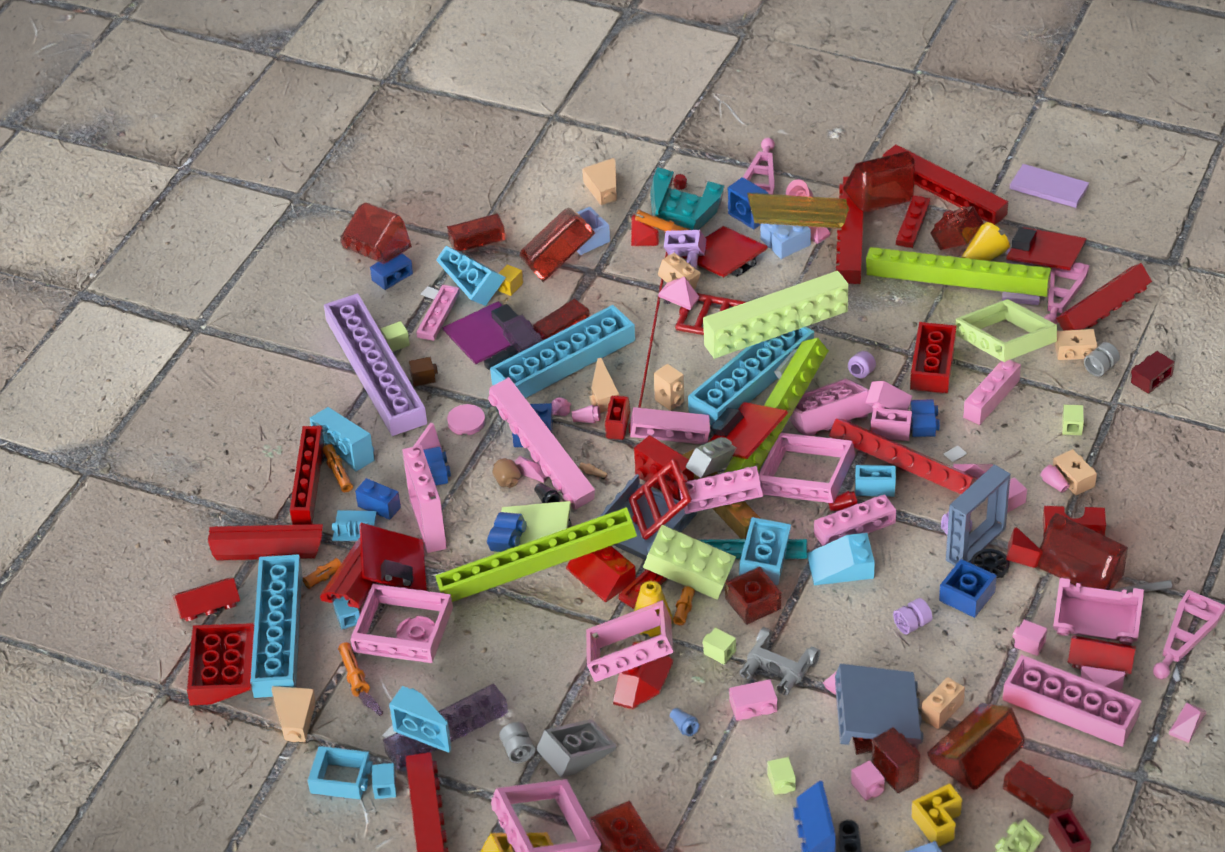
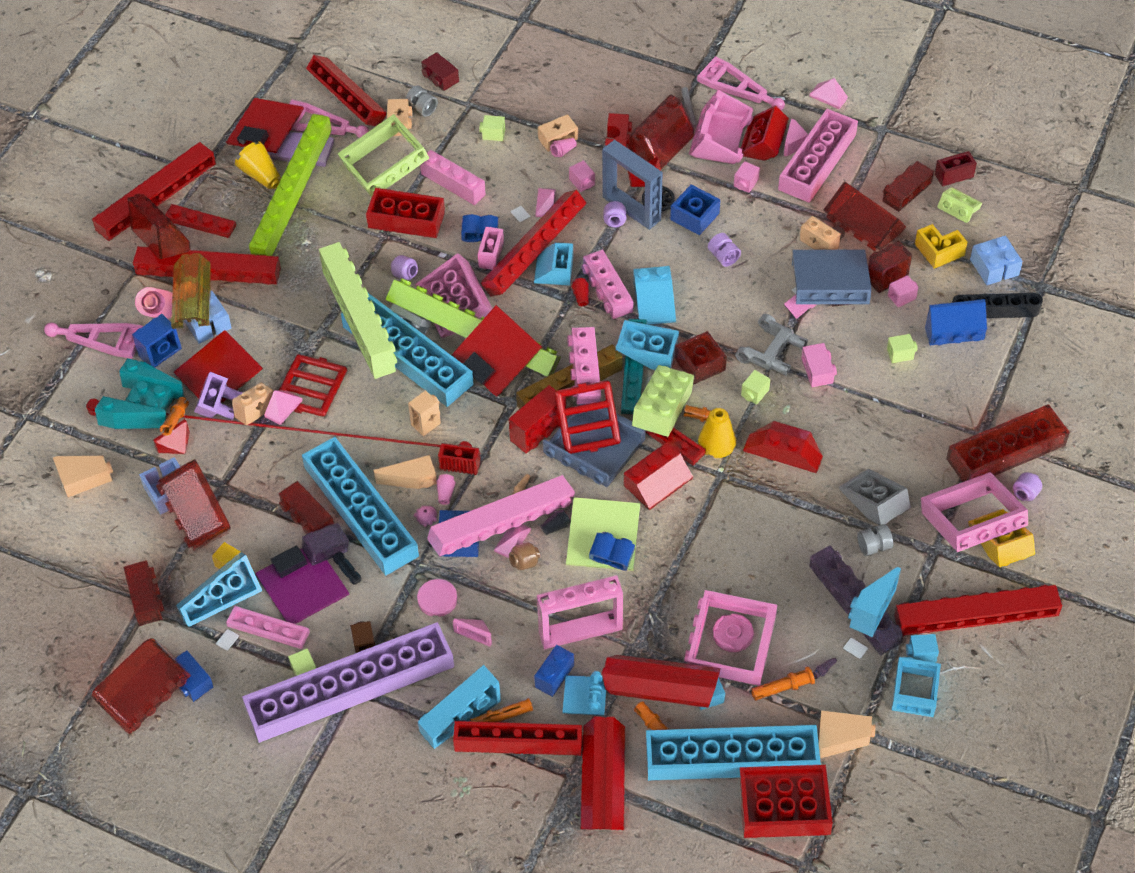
camera: 90 degrees left, 10 degrees up
(206, 599) = (686, 829): red slope -> none
(392, 558) = (646, 648): red piece -> none
(436, 461) = (509, 622): blue brick -> none
(537, 555) = (661, 517): lime brick -> none
(625, 627) = (741, 445): bright pink window -> none
(669, 425) = (475, 415): bright pink brick -> none
(685, 722) = (843, 415): medium blue cone -> none
(711, 457) = (544, 369): light grey brick -> none
(801, 488) = (554, 284): bright pink window -> none
(887, 397) = (466, 244): bright pink brick -> none
(956, 227) = (231, 181): clear red brick -> none
(1049, 185) = (170, 118): lavender tile -> none

